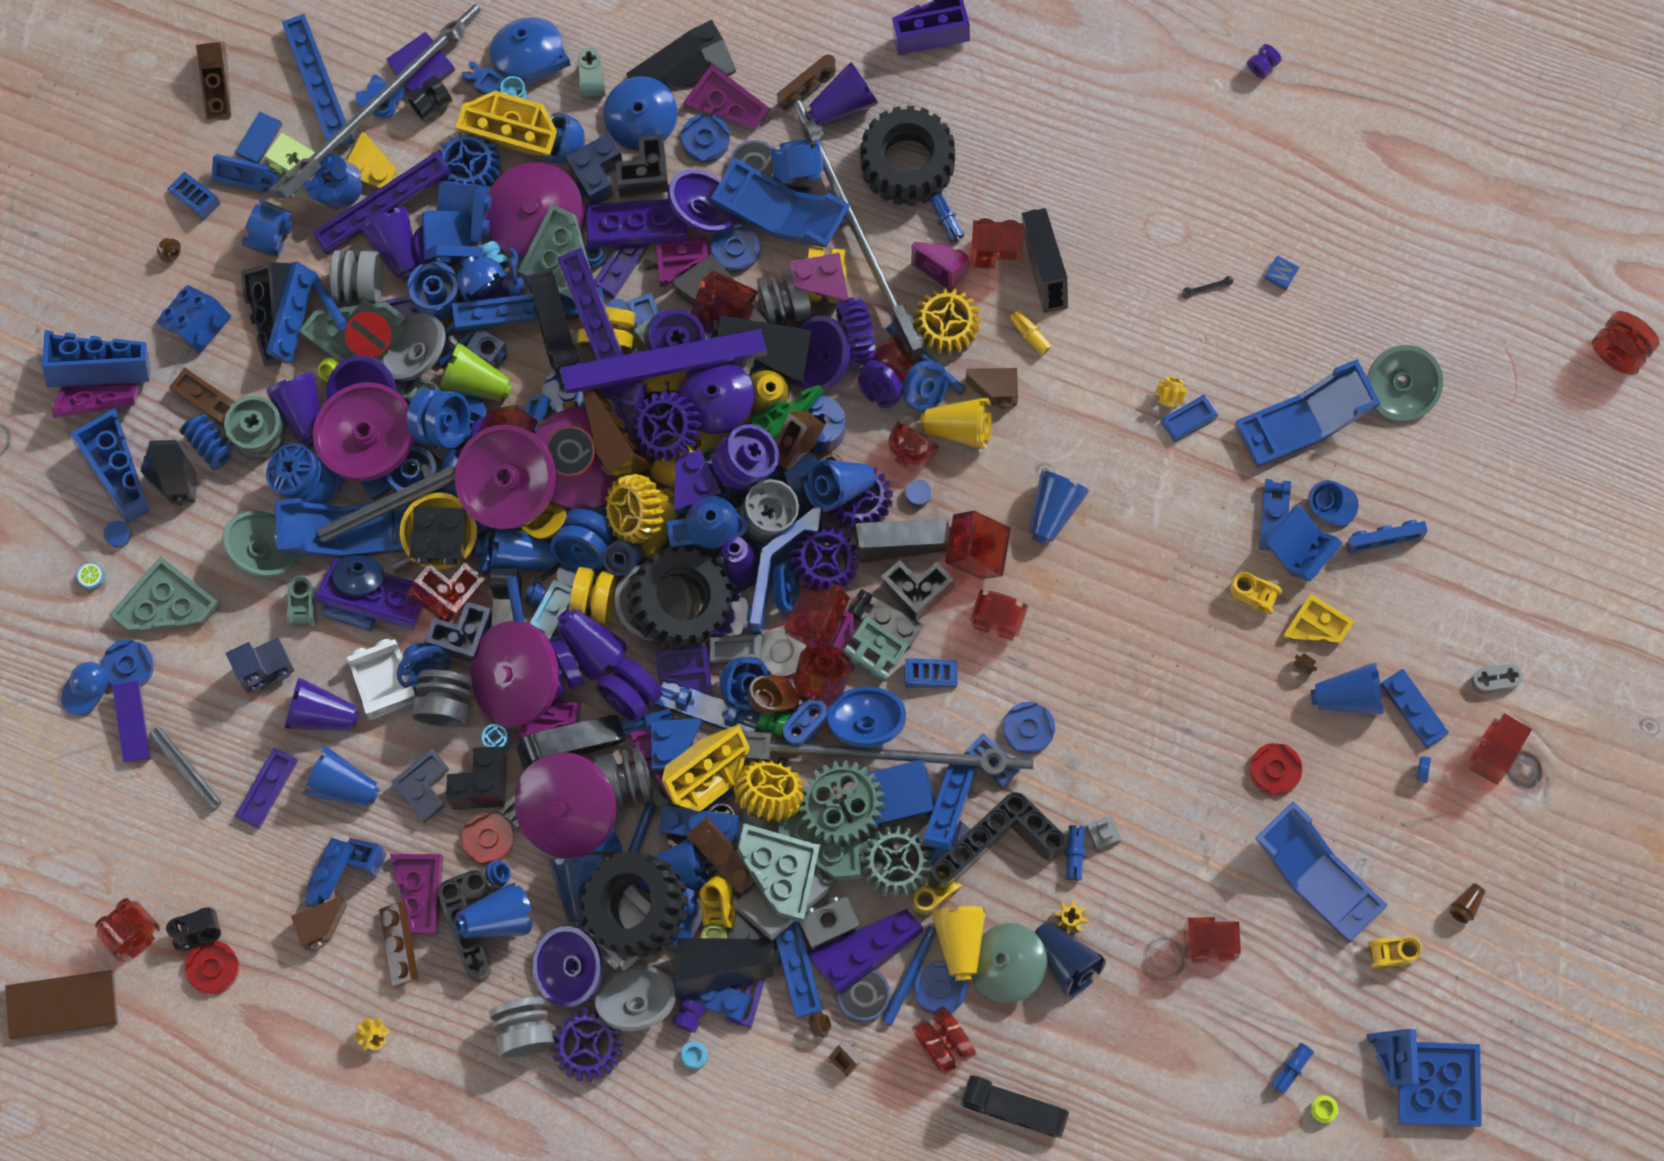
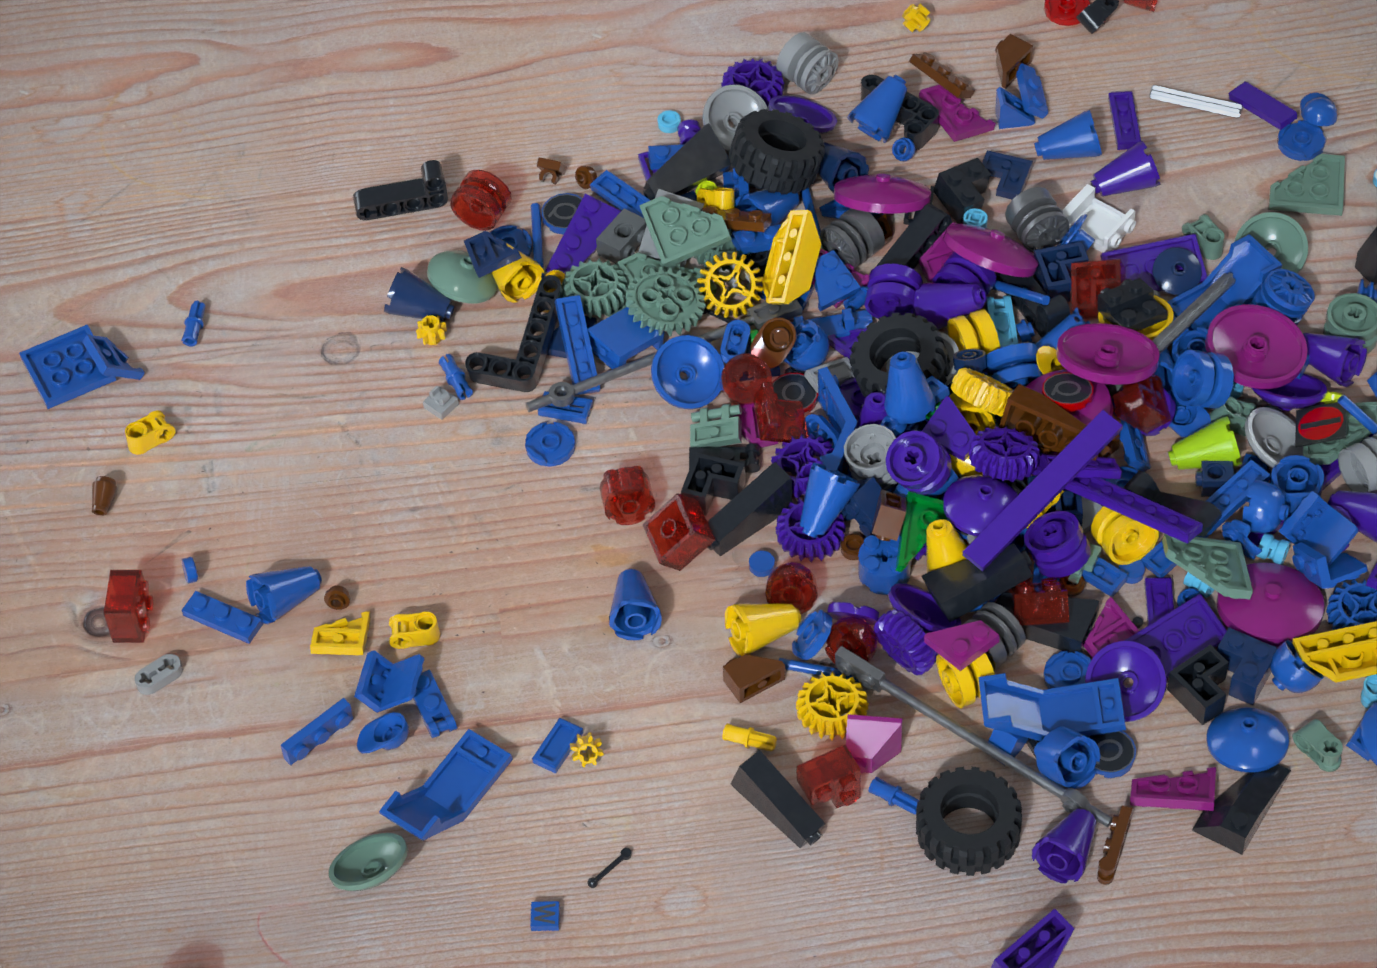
camera: 150 degrees right, 20 degrees down
(260, 665) = (1199, 176): dark blue brick -> none
(482, 843) = (926, 167): tile -> none
(705, 138) = (1171, 752): blue tile -> none
(920, 682) = (663, 427): blue slope -> none
(978, 947) = (489, 253): none -> dark blue wing
(1211, 940) = (310, 365): clear red brick -> none
(1275, 769) = (320, 516): red tile -> none
(1318, 873) = (235, 453): blue windscreen -> none
(1324, 1109) = (153, 310): neon yellow plate -> none

